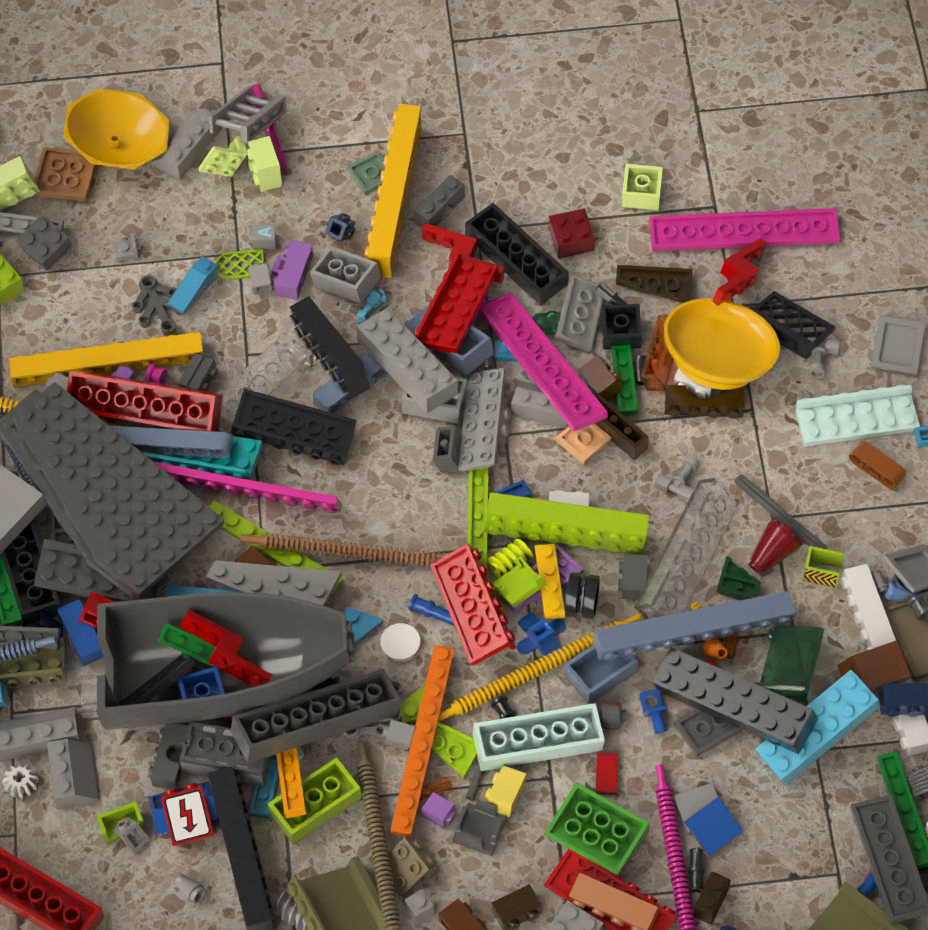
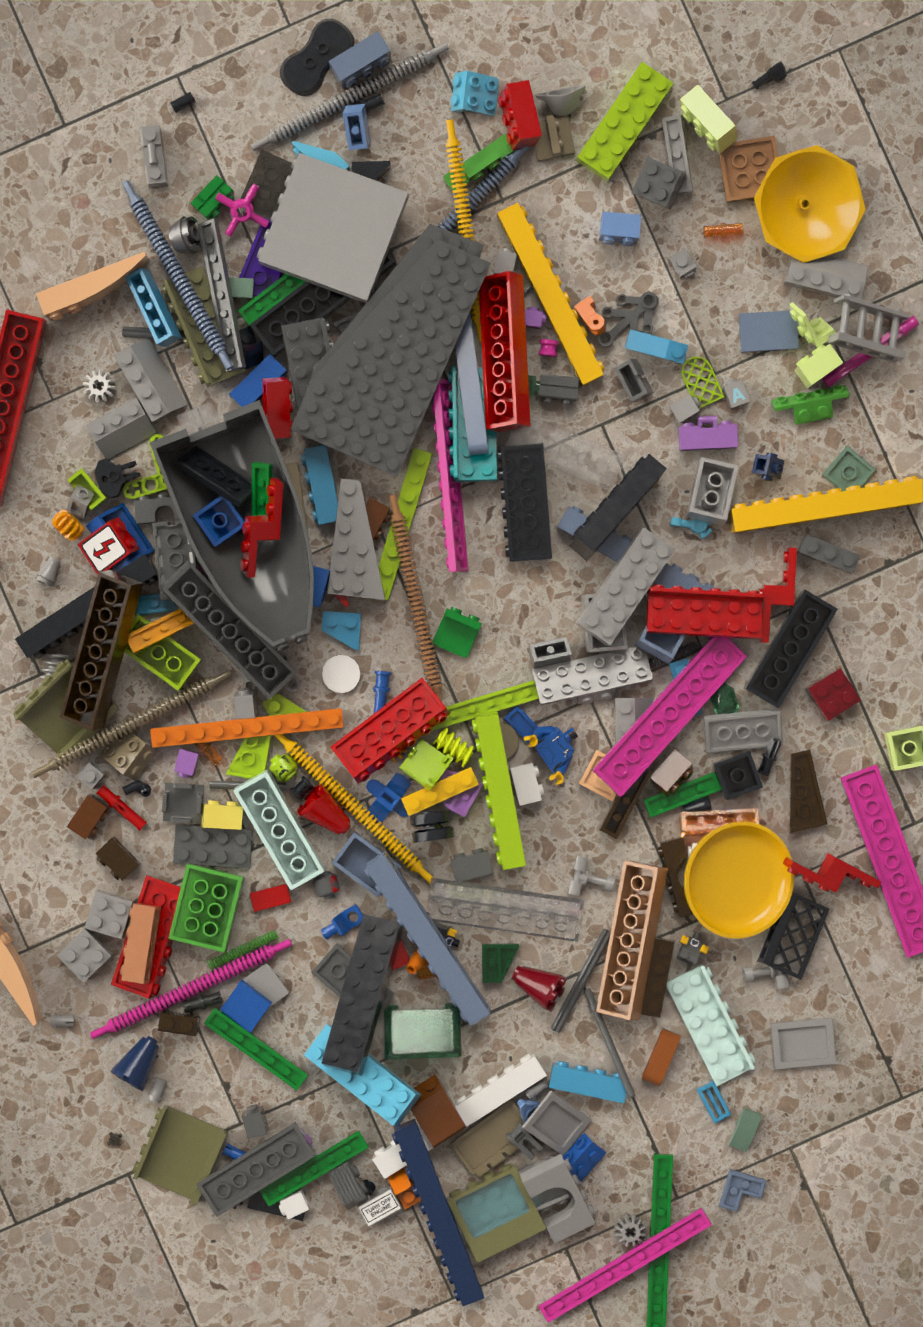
camera: 70 degrees right, 30 degrees up
(70, 283) = (619, 228): none -> medium blue brick
(110, 209) = (723, 230): none -> clear orange pin
(117, 791) = (115, 475): none -> black hinge
(136, 753) = (158, 478): none -> lime beam
(143, 330) = (593, 321): none -> orange leg
(149, 850) = (68, 525): none -> light orange gear
(209, 314) = (631, 375): none -> dark grey piece
(217, 200) = (768, 331): none -> sand blue tile
(290, 838) = (101, 650): none -> dark brown brick
(299, 182) = (811, 405): none -> bright green bracket
(395, 524) = (457, 632): none -> green bracket
(448, 867) = (139, 787): none -> black arm
(464, 889) = (121, 807): none -> red pin
(474, 715) = (283, 767): none -> lime head
(532, 692) = (324, 811): none -> red cone
(533, 813) = (212, 846): none -> dark grey plate
(543, 472) = (553, 749): none -> blue torso
(656, 838) = (247, 950): none -> bright green piece
(753, 453) = (631, 940): none -> medium nougat brick
(761, 832) = (256, 1049): none -> green plate
(778, 411) = (691, 949): none -> dark grey piece
(796, 446) = (657, 977): none -> dark brown brick
(811, 509) = (609, 1043): none -> dark grey bar
(825, 557) = (526, 1020): lime piece -> none
(838, 848) = (255, 1121): none -> dark grey brick
(885, 532) = (587, 1082): none -> dark azure brick

